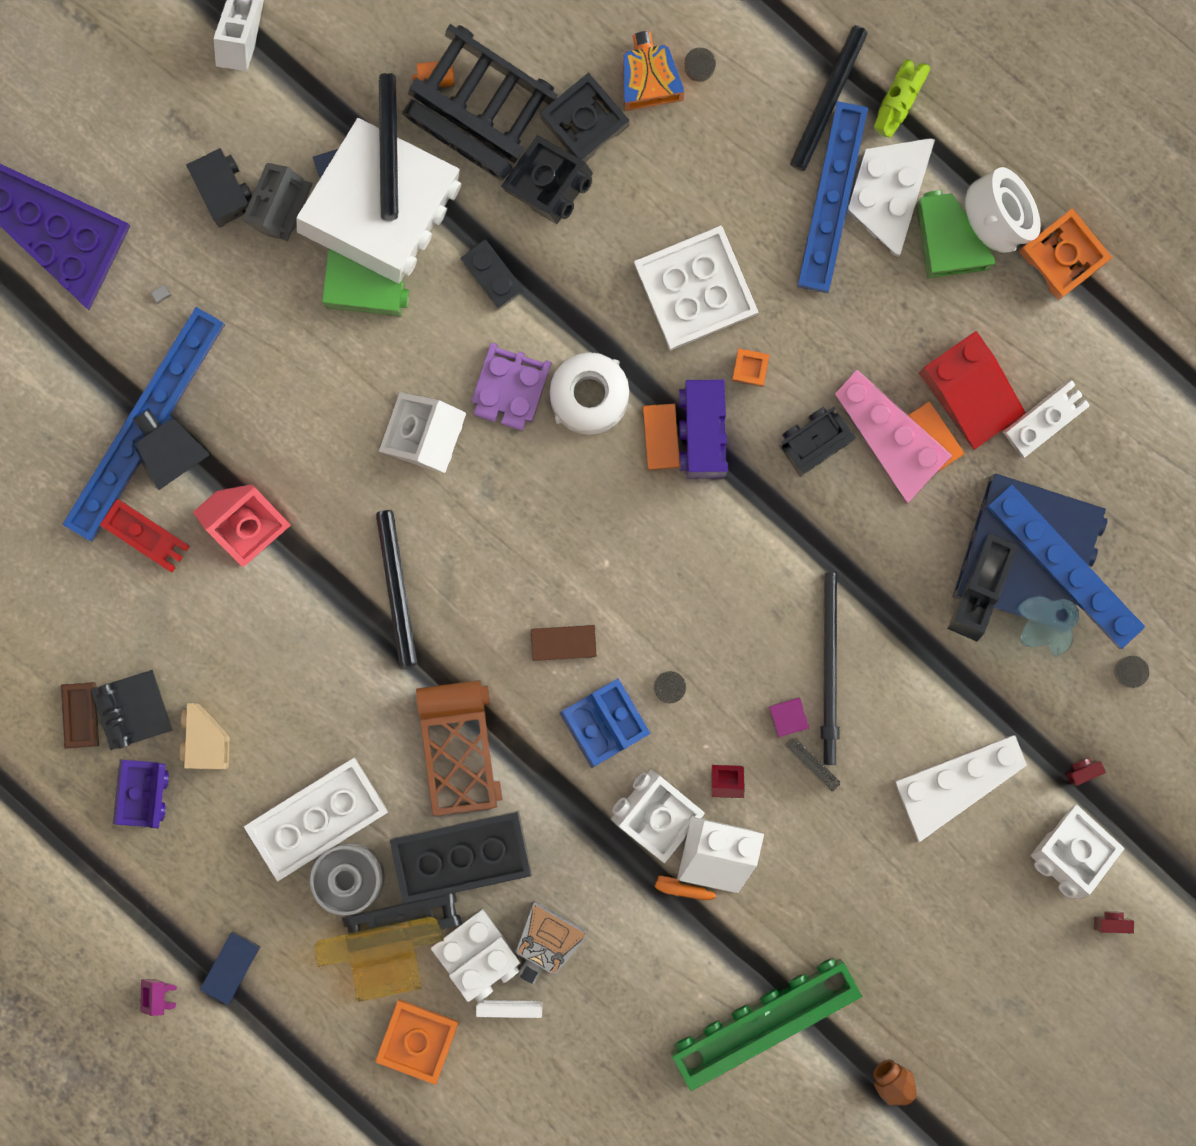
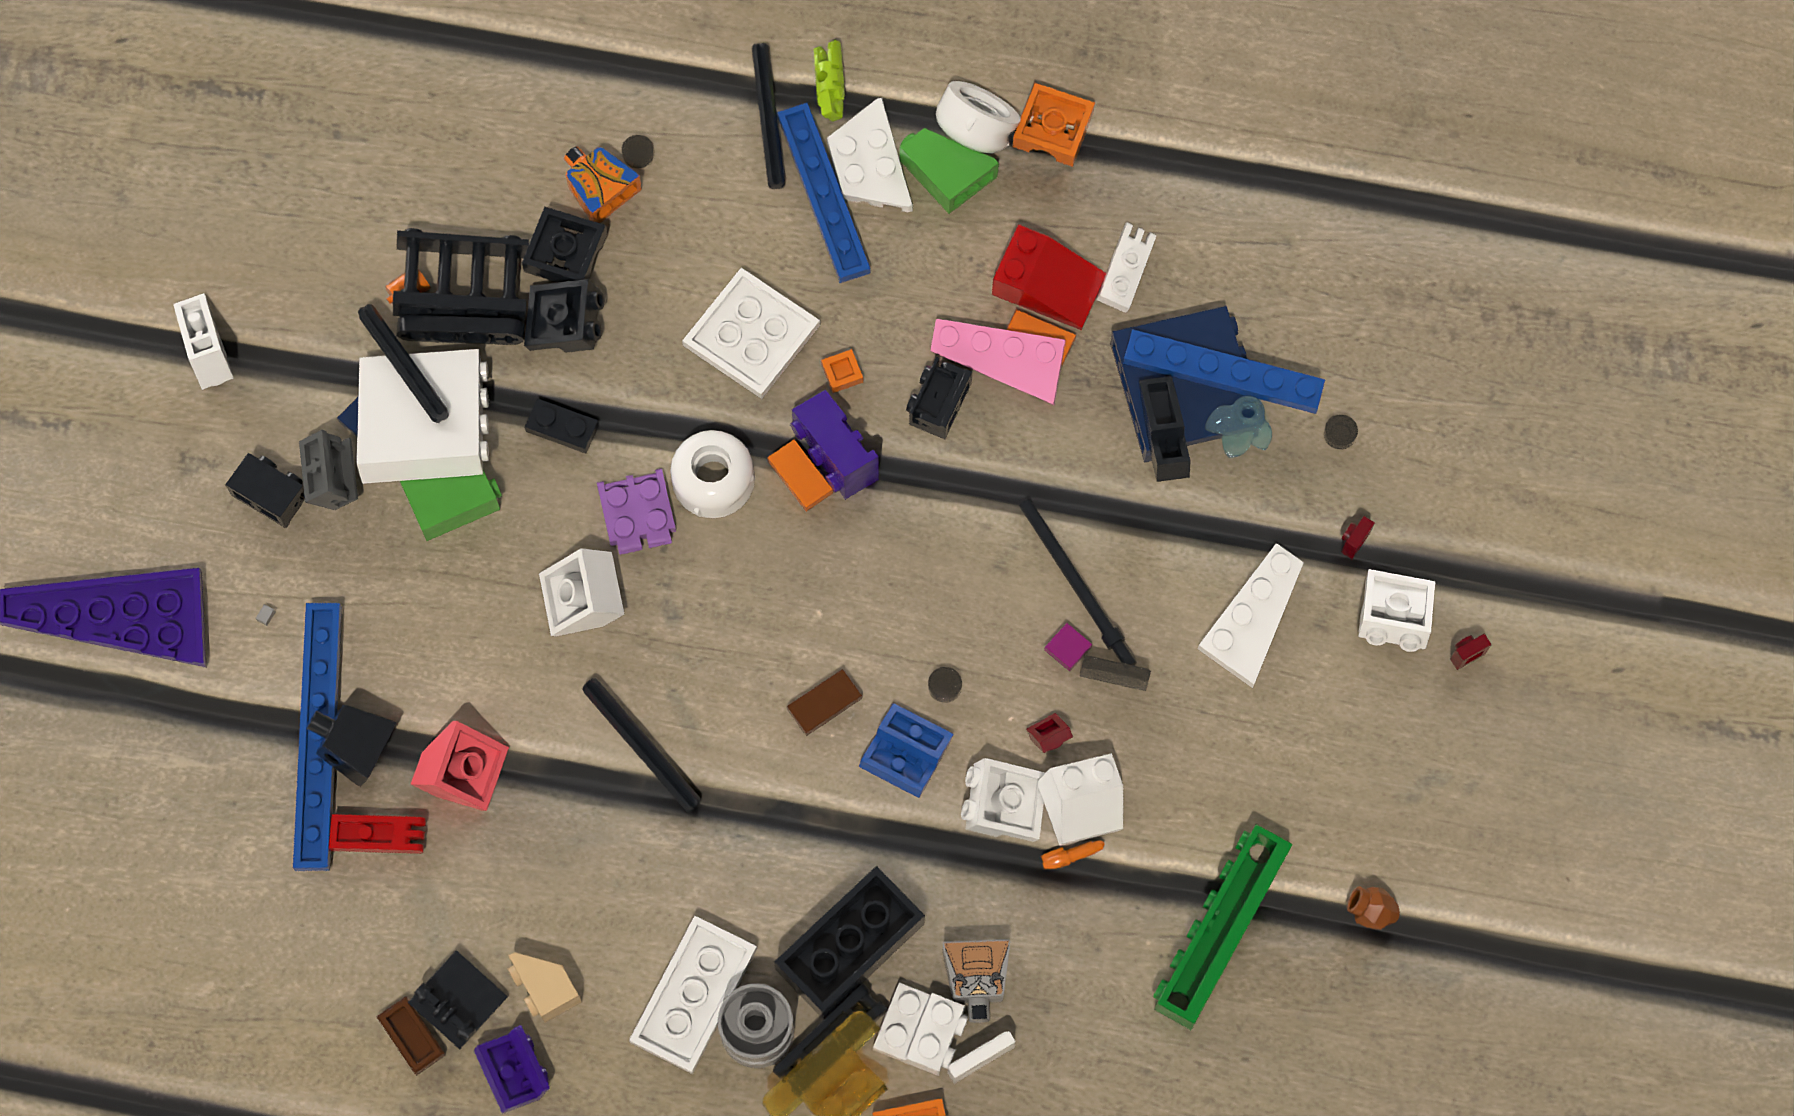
camera: 30 degrees left, 15 degrees down
(450, 705) = (757, 814): dark orange piece -> none

